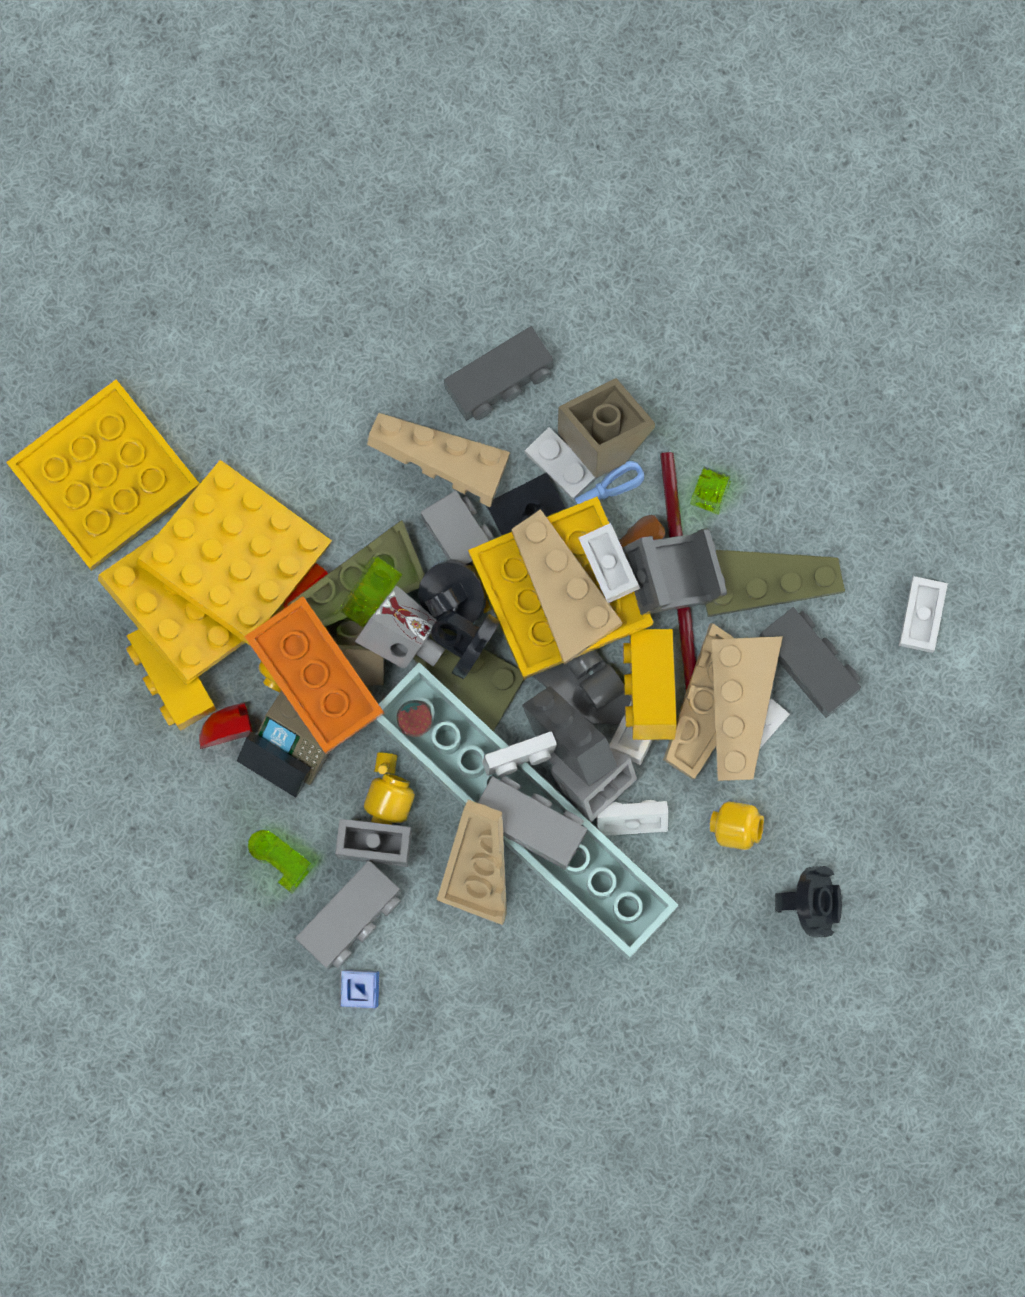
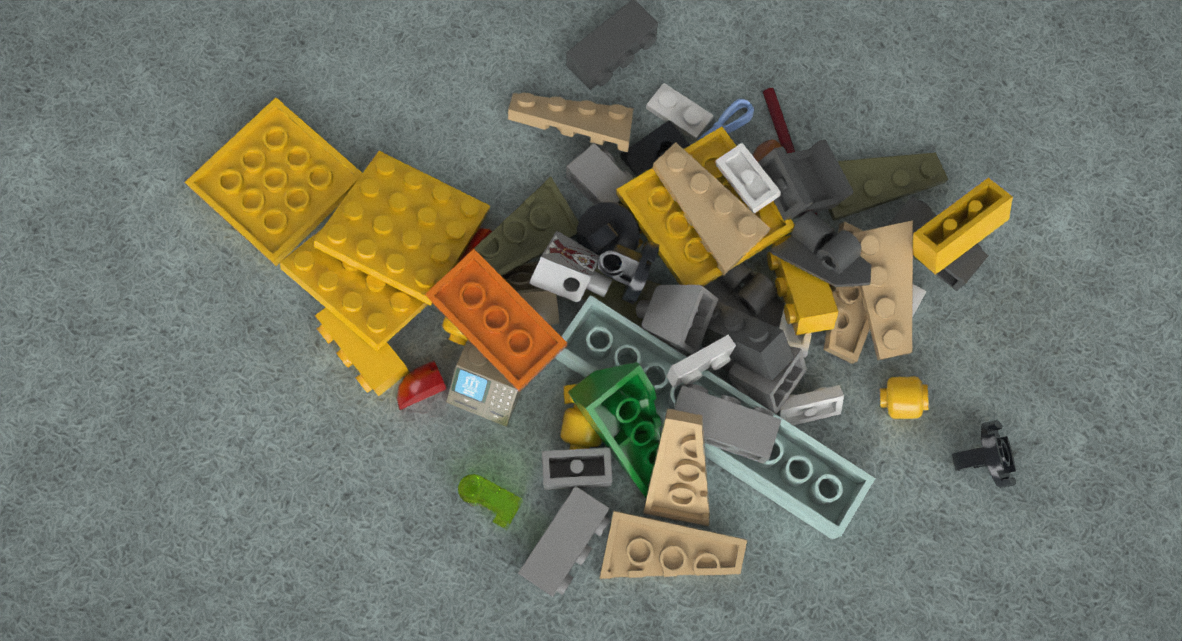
camera: 15 degrees left, 5 degrees down
(273, 764) = (470, 412): black tile -> none
(359, 988) = (587, 611): tile -> none
(370, 590) = (534, 238): clear neon green leg -> none
(414, 718) = (596, 345): clear smoke tile -> none
(430, 795) = (624, 416): none -> green wedge
(444, 938) = (661, 548): none -> tan wing
(506, 700) = (678, 315): none -> light grey torso
(604, 427) = (713, 72): dark tan slope -> none
(677, 657) = (825, 253): none -> dark grey panel
(711, 490) = (816, 109): clear neon green leg -> none
(831, 652) = (962, 225): none -> yellow brick
(923, 614) = (1021, 182): white plate -> none

